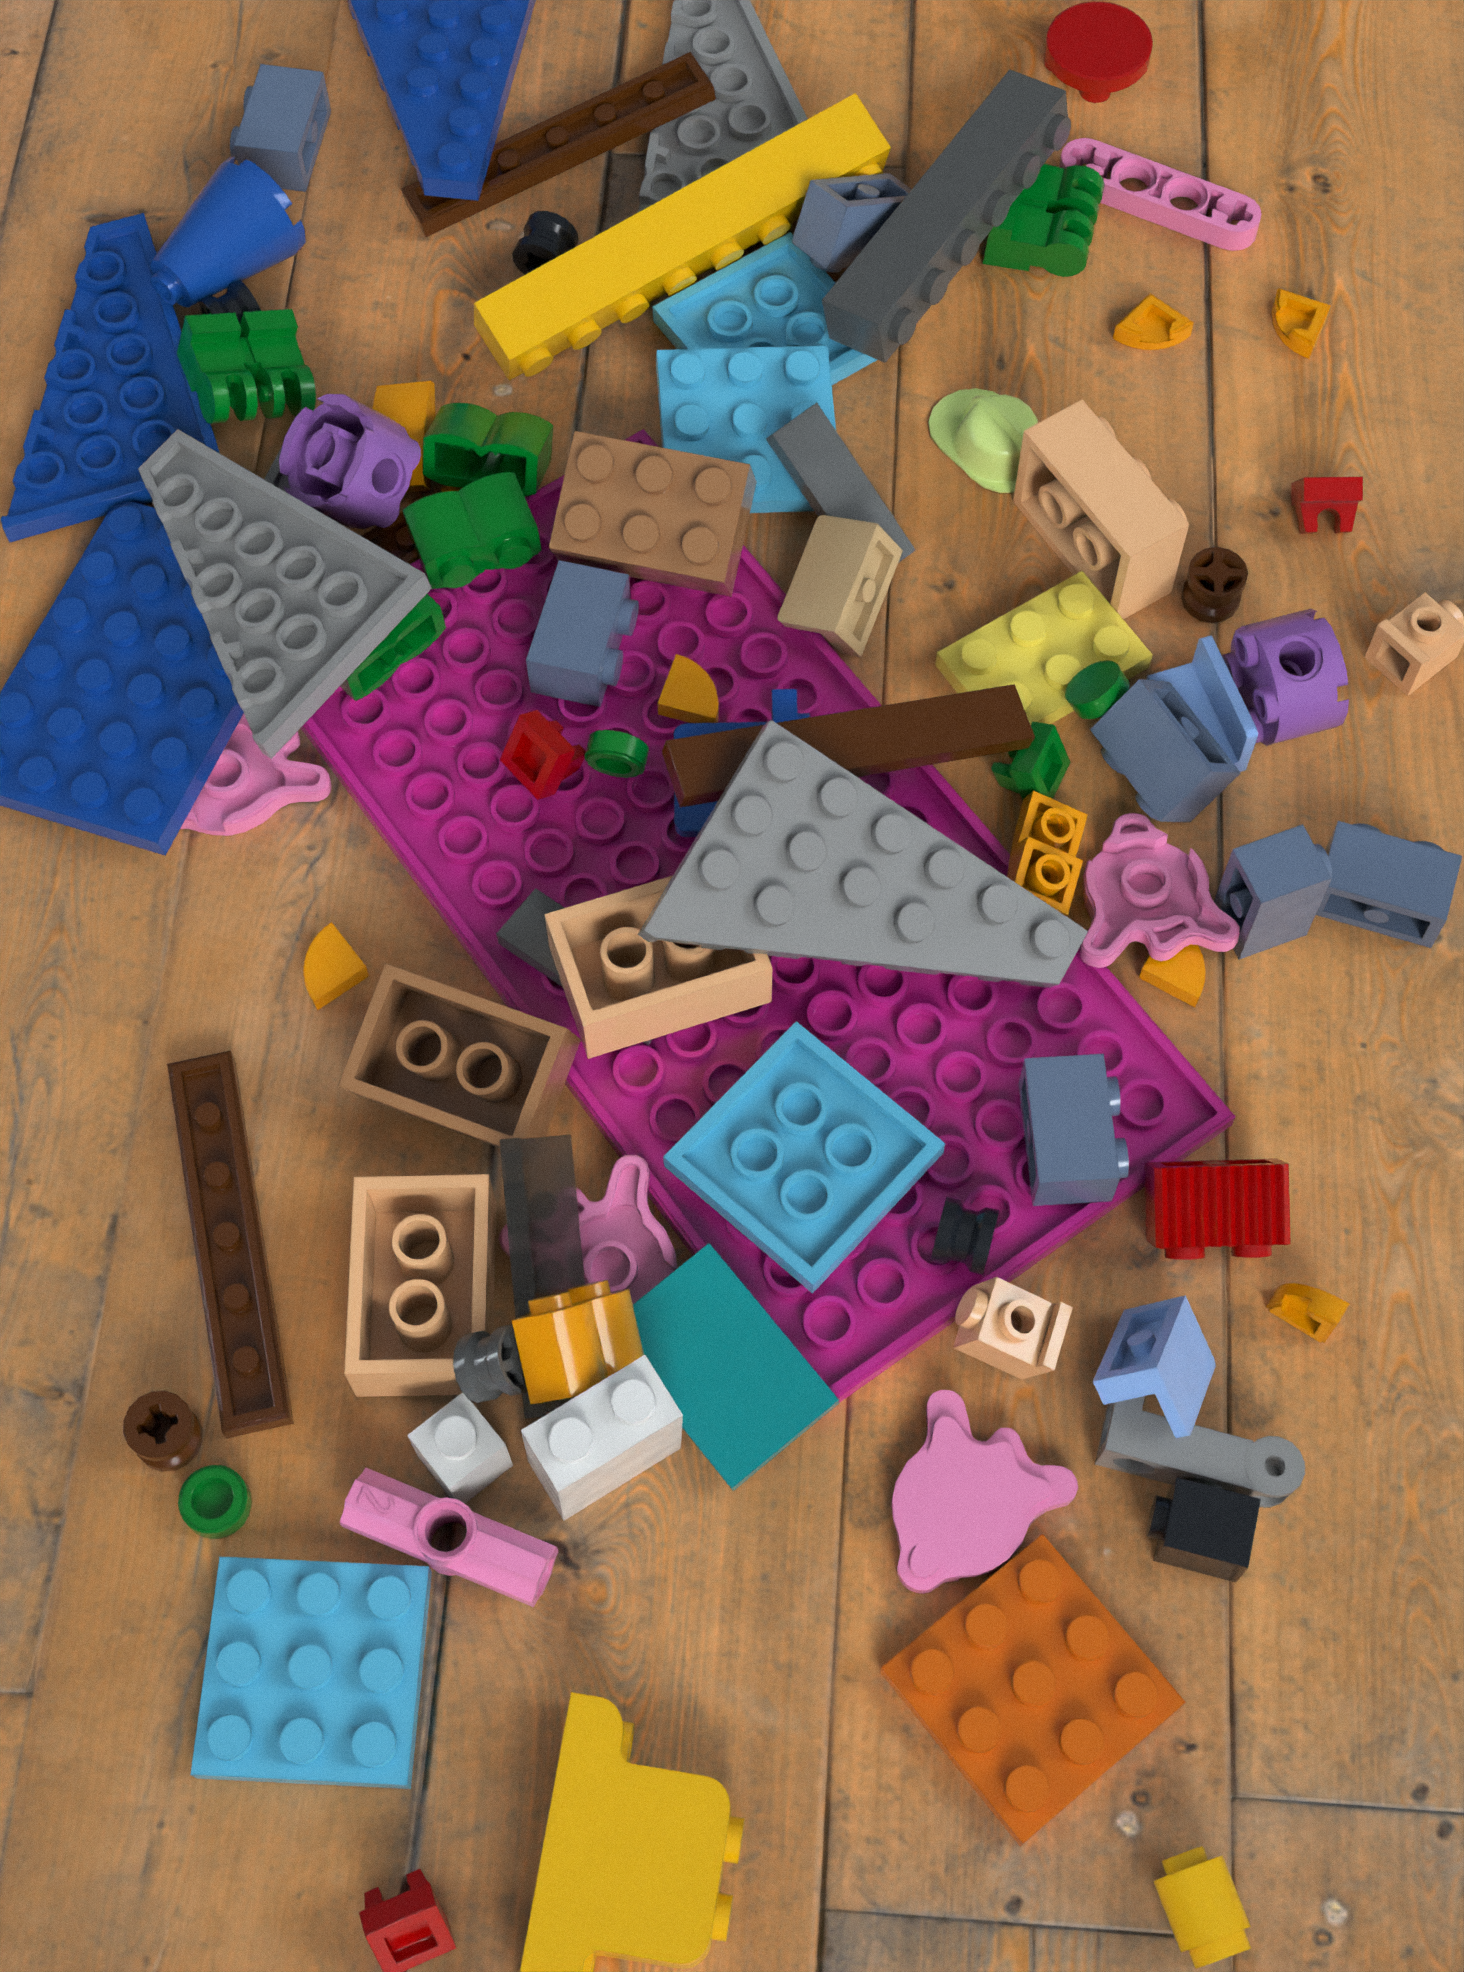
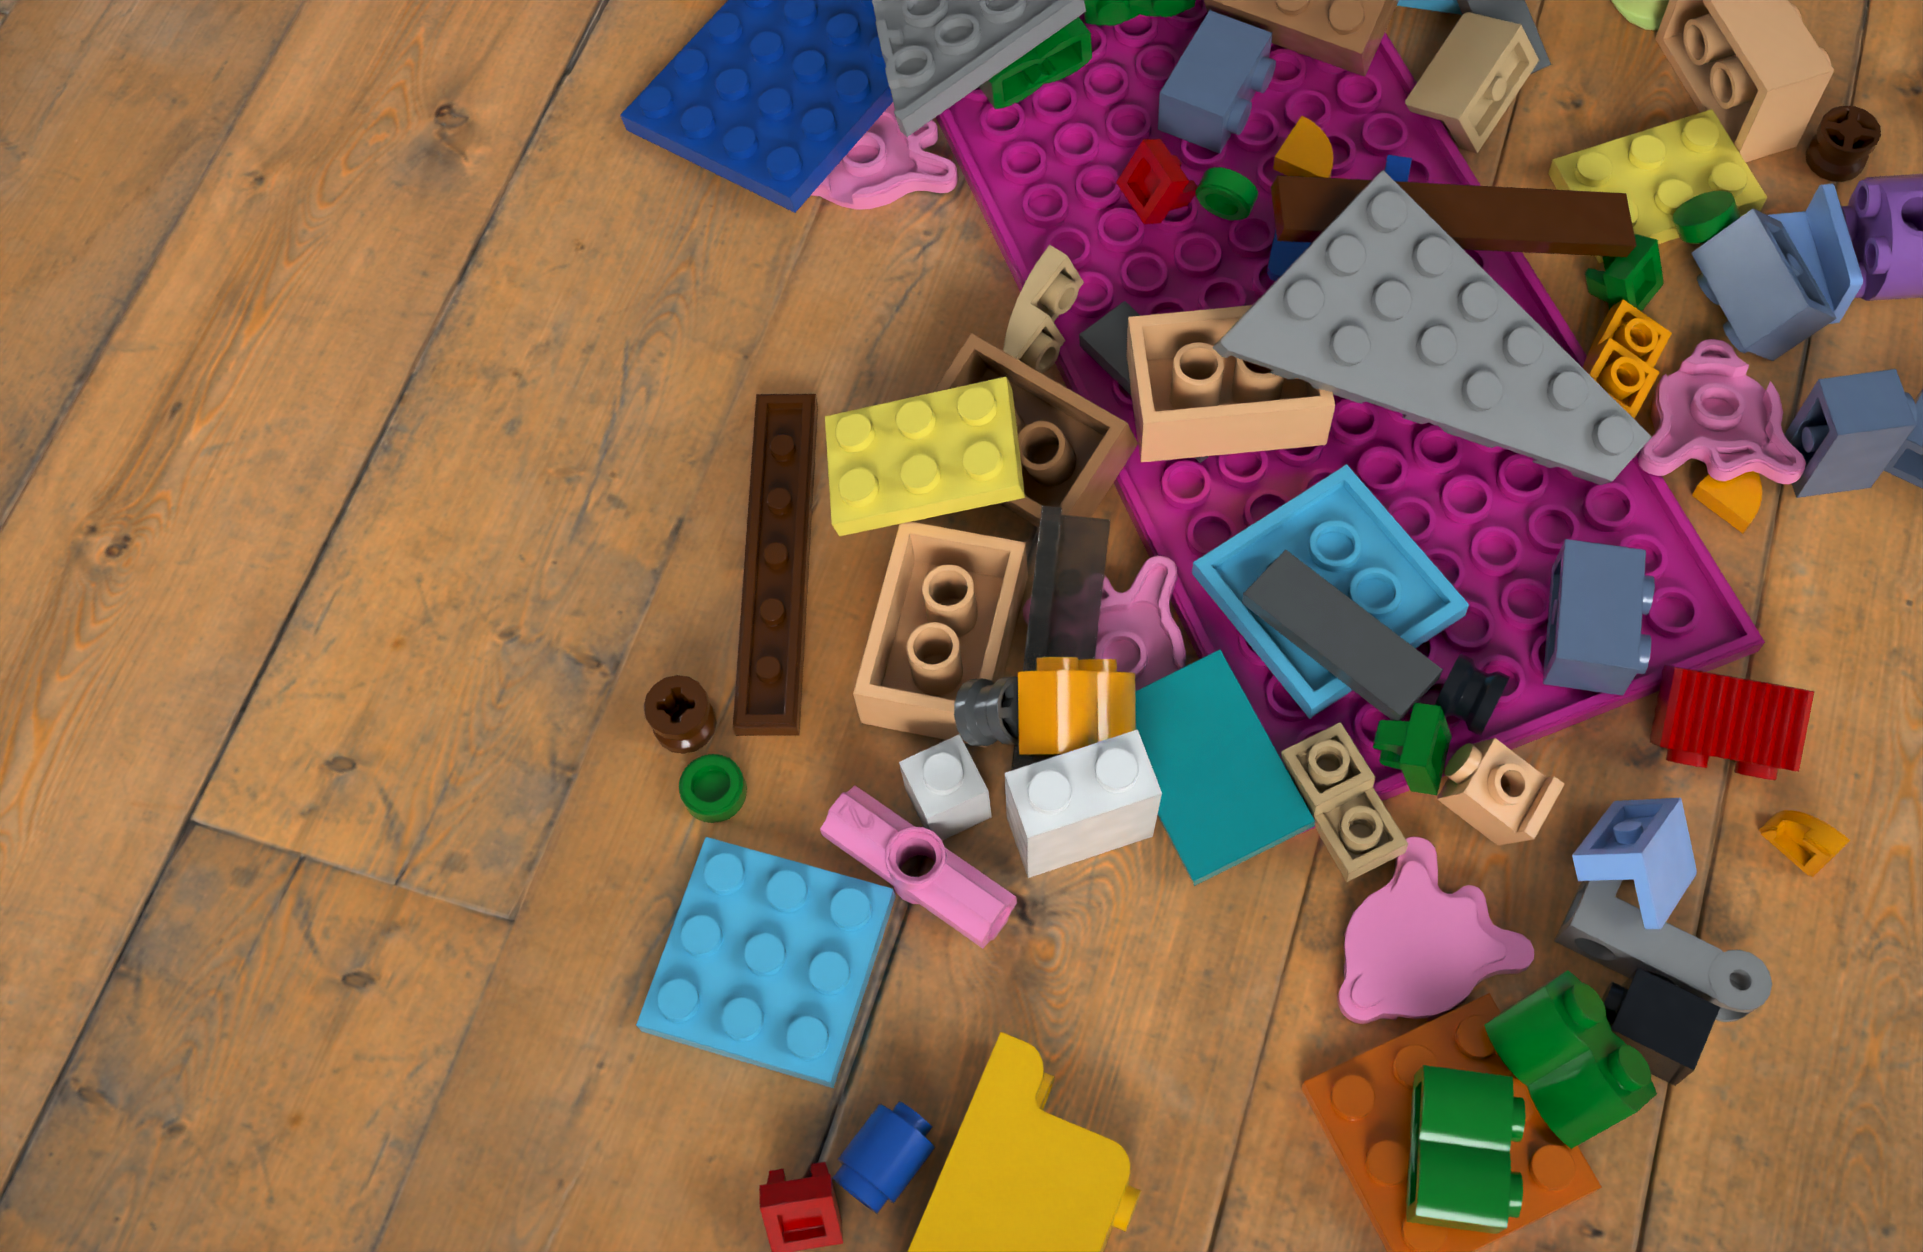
camera: 20 degrees right, 0 degrees up
(331, 967) = (922, 339): light orange tile -> none
(363, 1106) = (923, 457): none -> light yellow plate
(448, 948) = (1045, 296): none -> tan slope
(479, 1847) = (884, 1155): none -> blue brick
(826, 1204) = (1341, 636): none -> dark grey tile
(862, 1372) = (1343, 801): none -> tan slope
(923, 1301) = (1416, 747): none -> green tile
(1046, 1701) = (1462, 1150): none -> green brick
(1131, 1584) = (1571, 1059): none -> green brick

